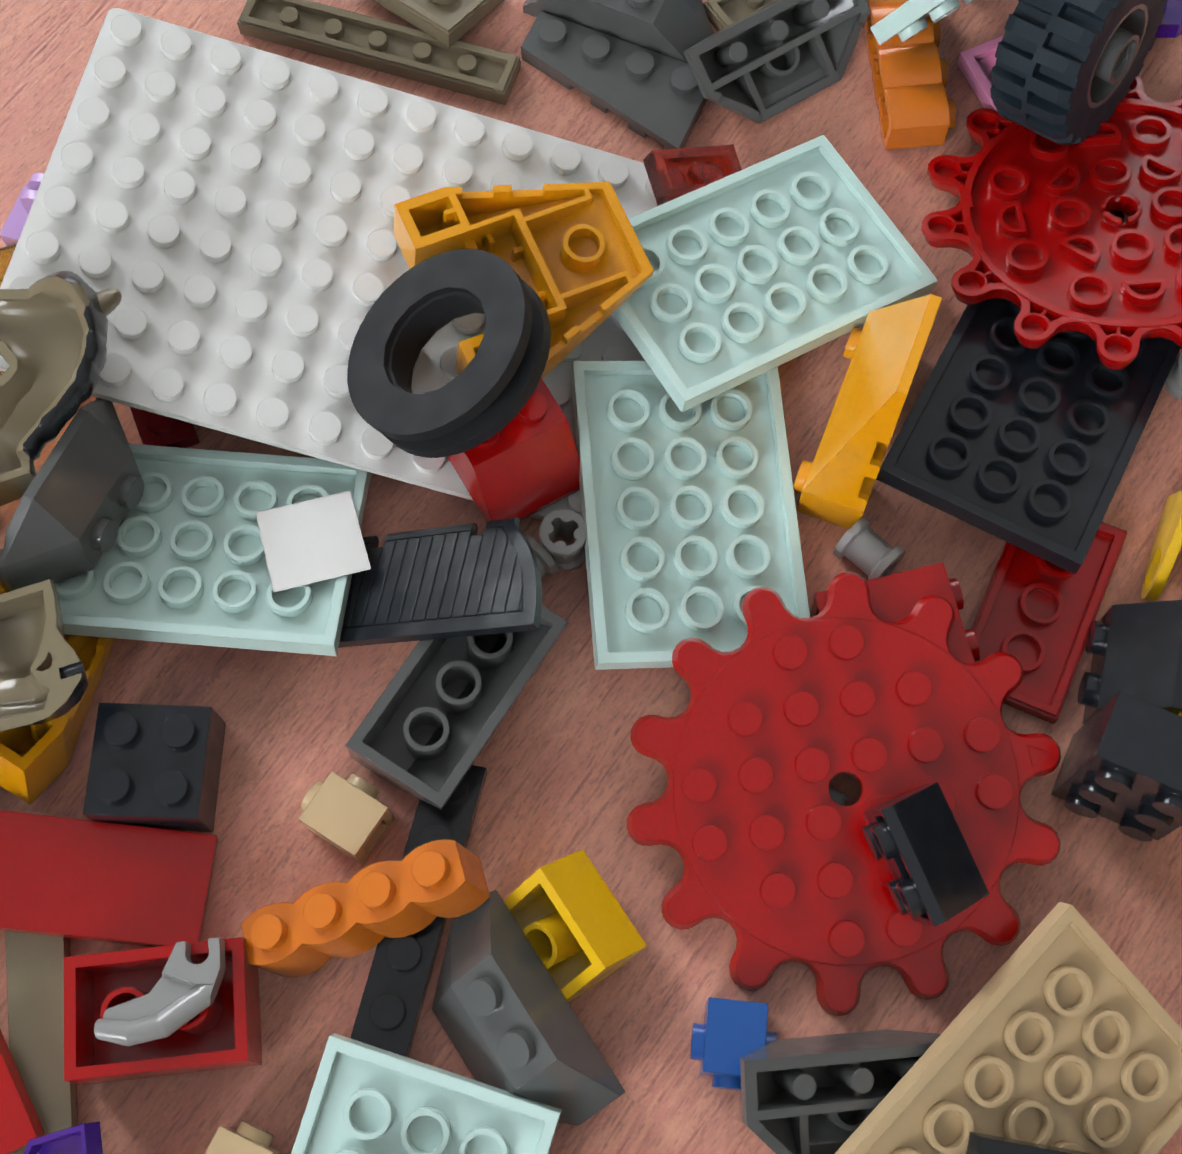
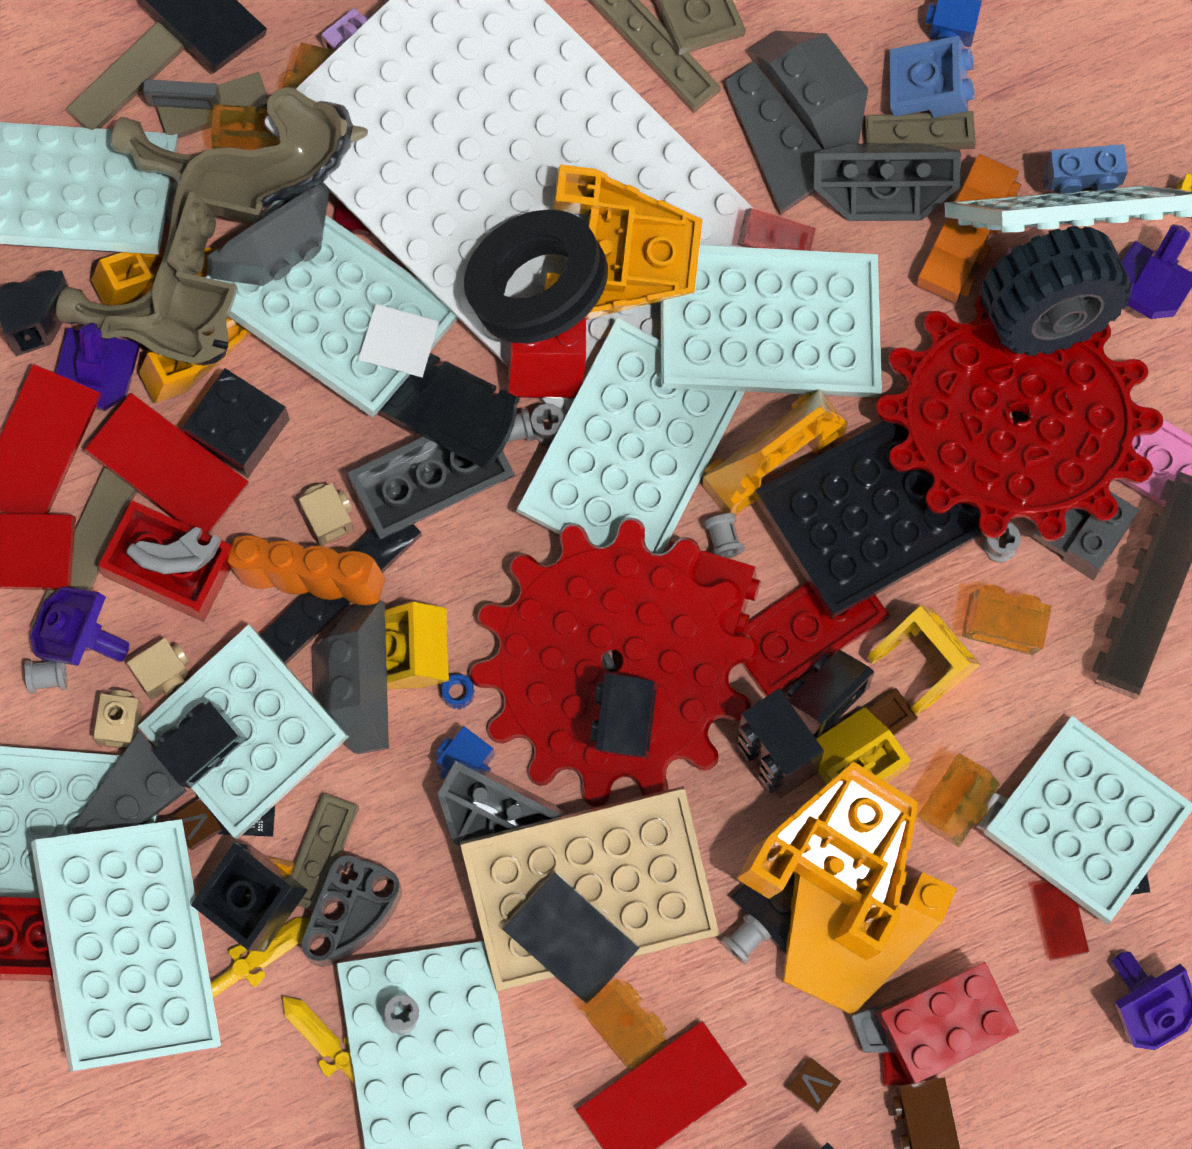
camera: 30 degrees right, 5 degrees up
(664, 933) = (466, 700): none -> blue axle

